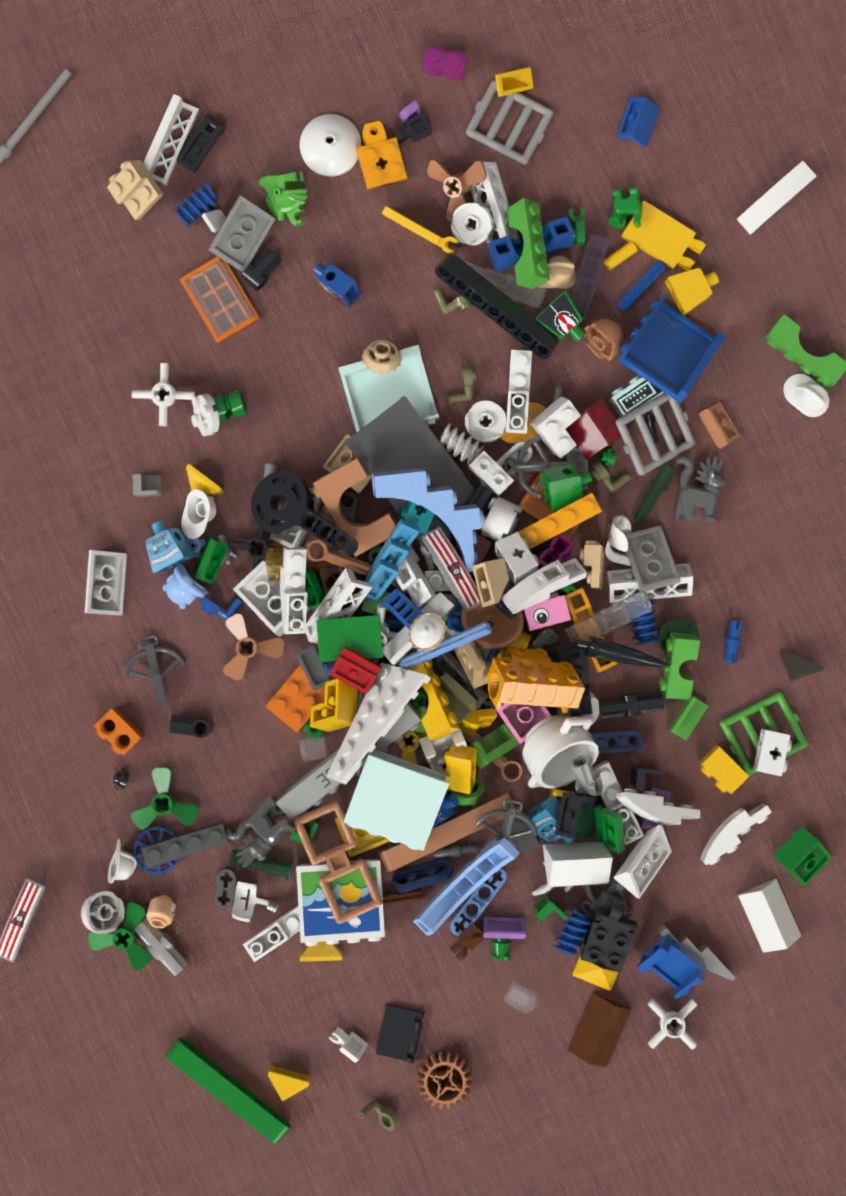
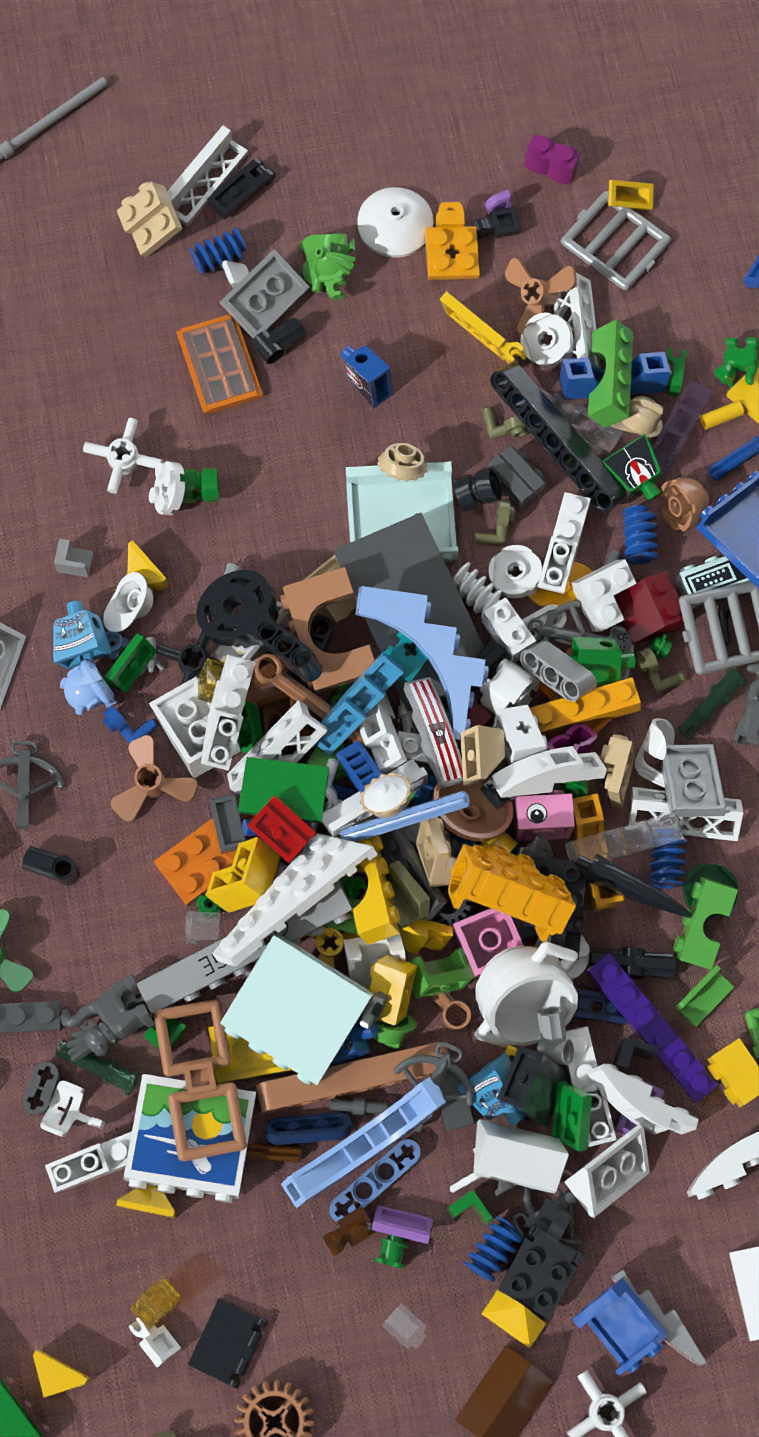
camera: 10 degrees right, 15 degrees down
(344, 1020) = (156, 1302): none -> clear yellow brick
(444, 362) = (481, 487): none -> black wheel
(452, 789) = (374, 1010): none -> dark grey tile
(470, 343) = (517, 476): none -> dark grey brick
(535, 500) = (558, 671): none -> light grey beam
(576, 371) = (639, 536): none -> blue piece
(654, 750) = (651, 1027): none -> dark purple plate

